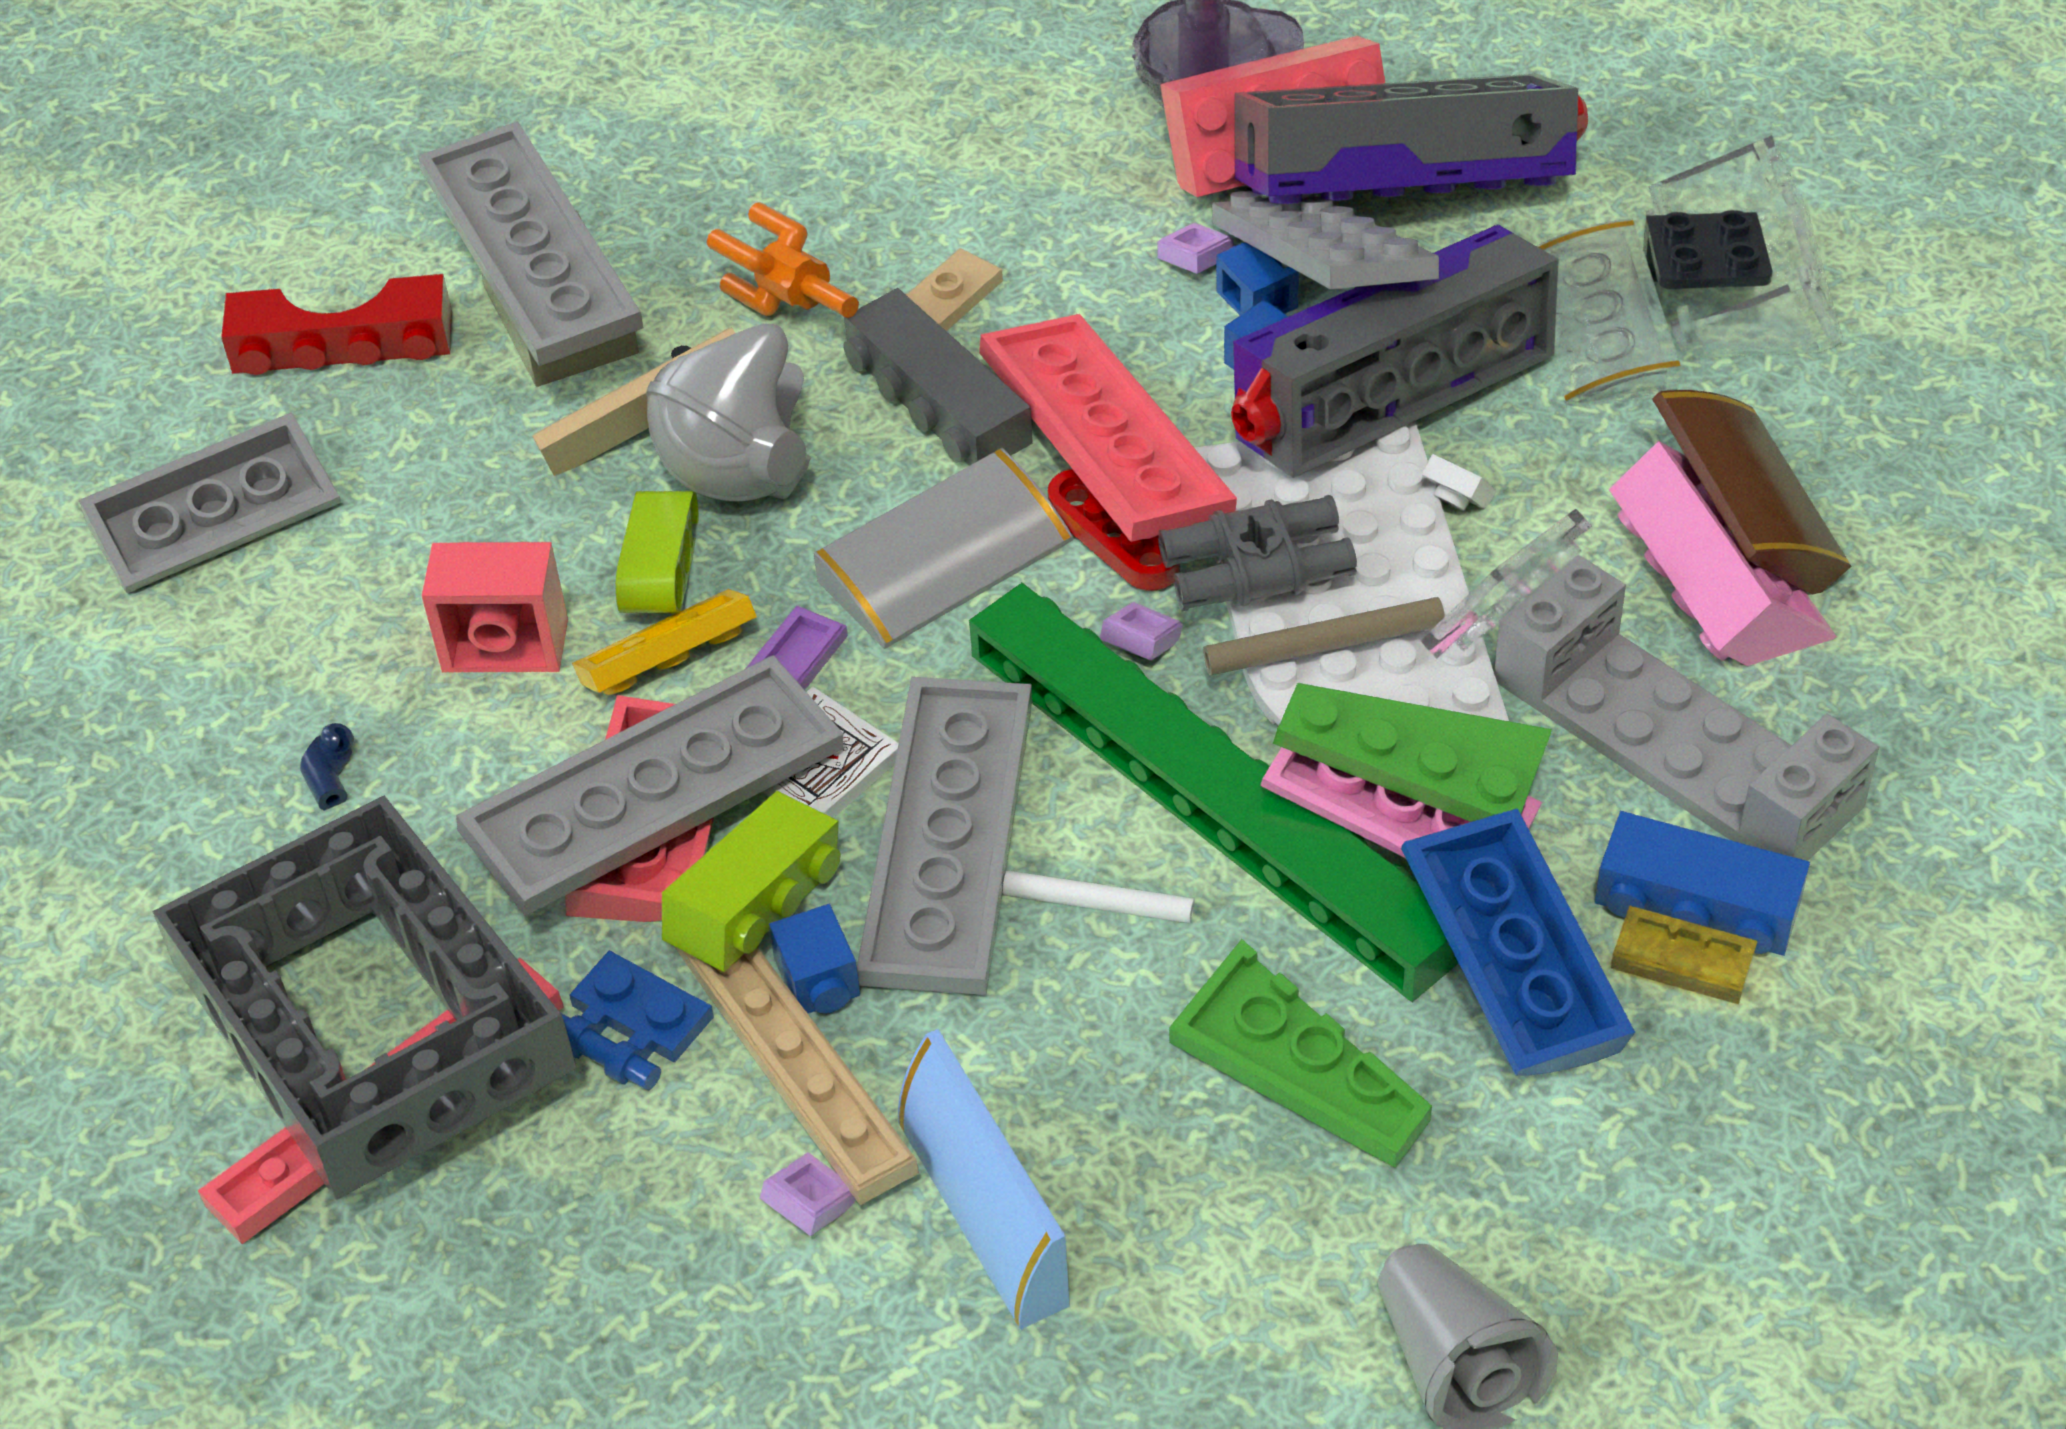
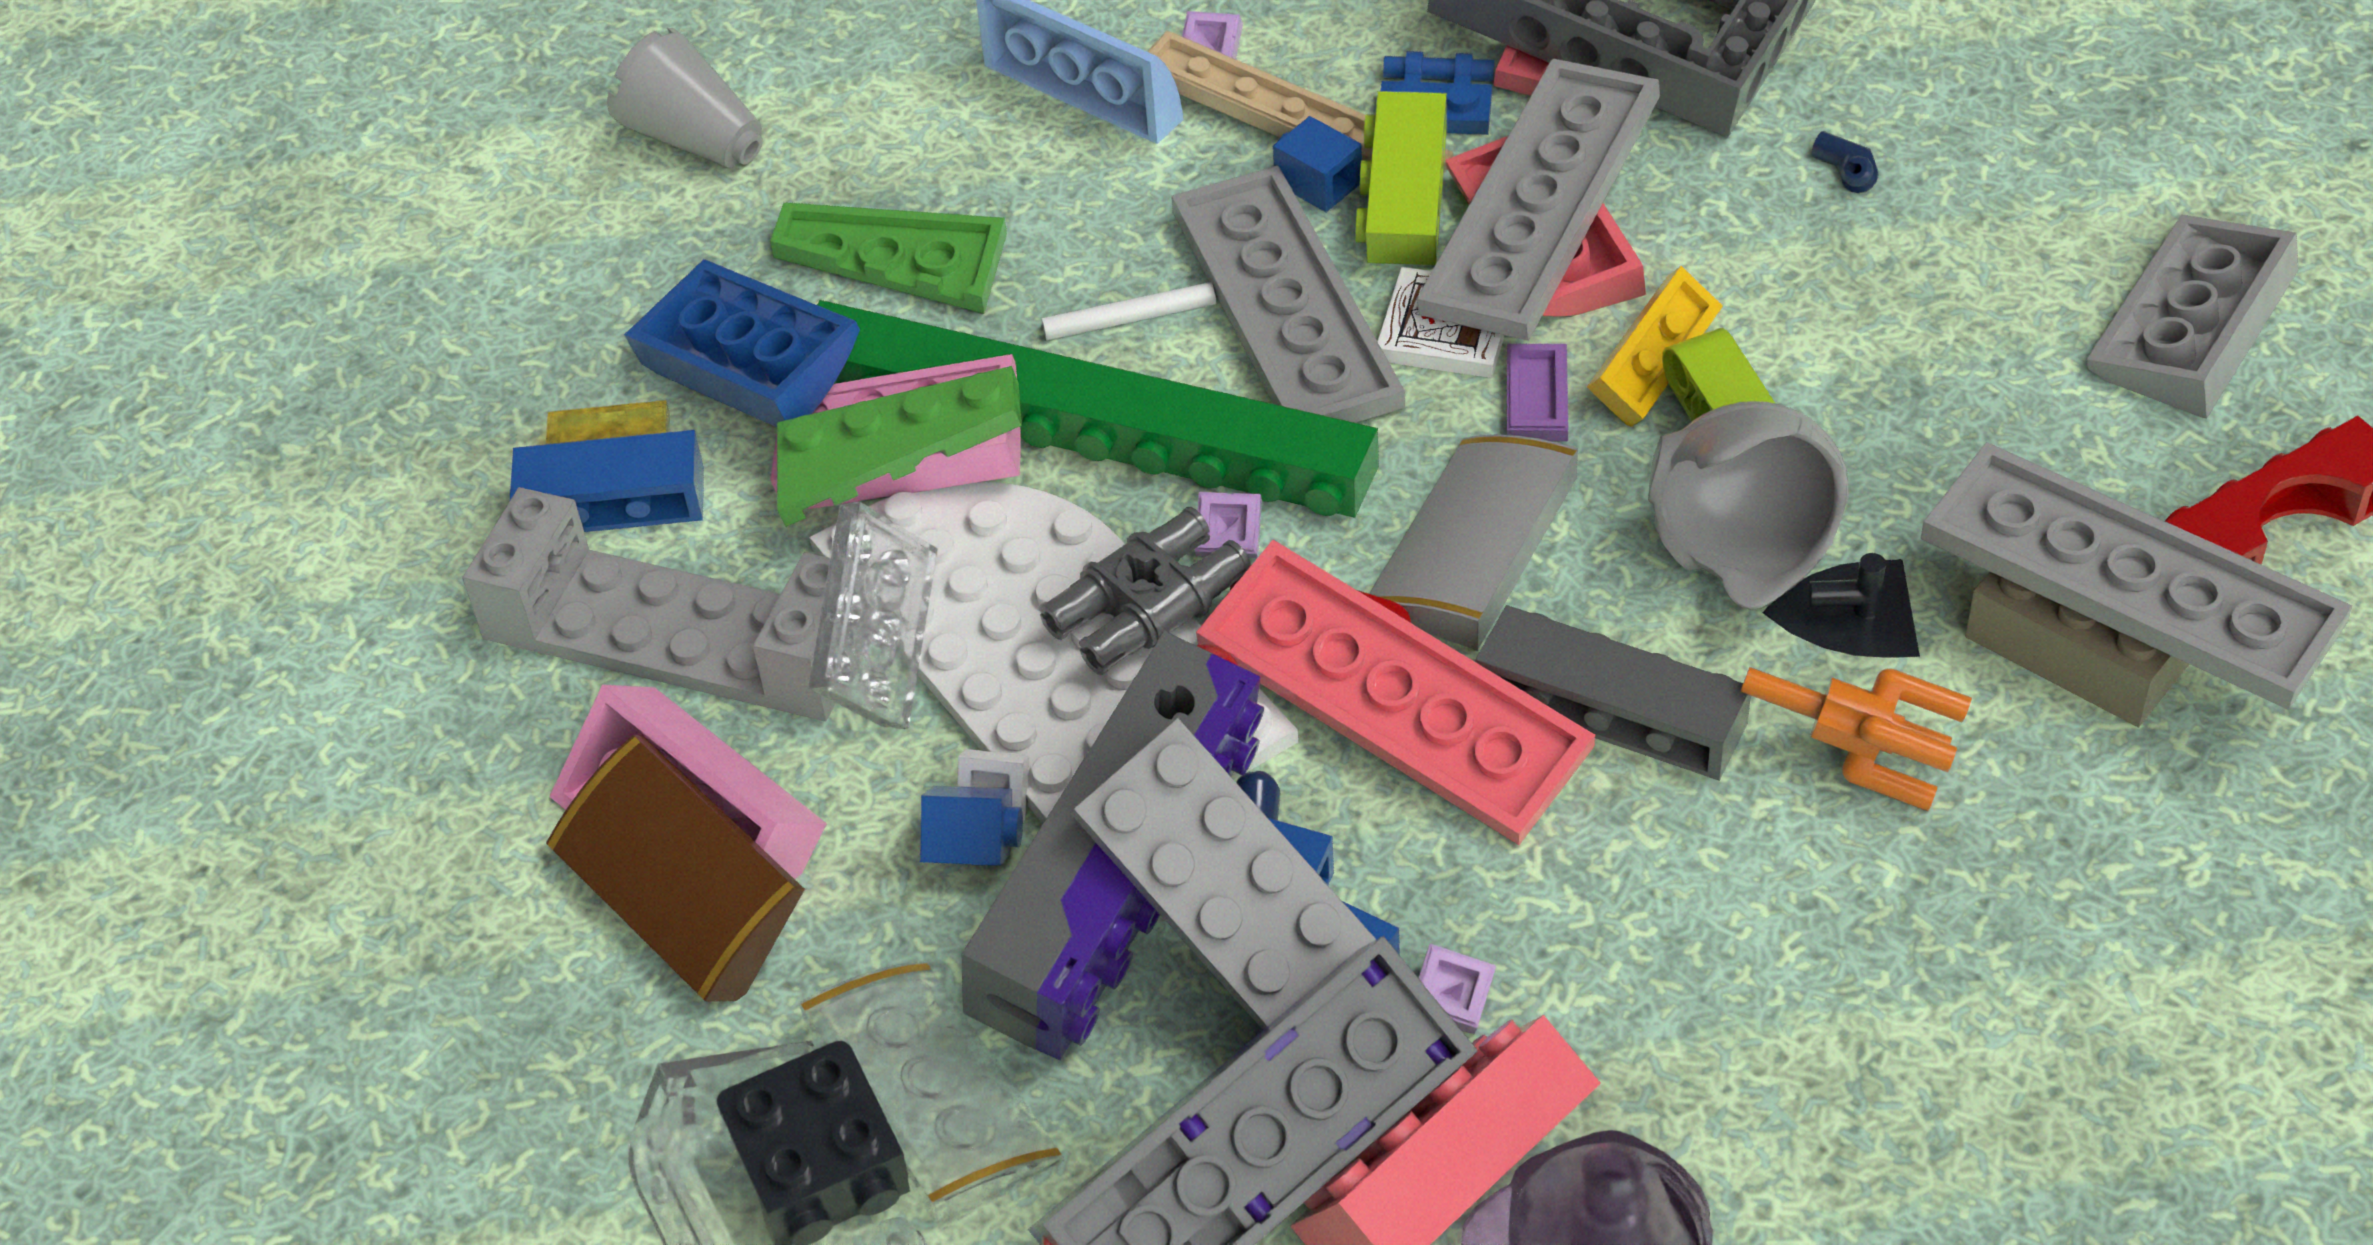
camera: 155 degrees right, 0 degrees up
(495, 606) = (1812, 276): coral brick -> none
(602, 422) = (1870, 519): tan tile -> none
(956, 287) = (1693, 826): tan plate -> none
(1323, 636) = (1038, 549): dark tan piece -> none
(1493, 448) = (969, 825): none -> blue brick

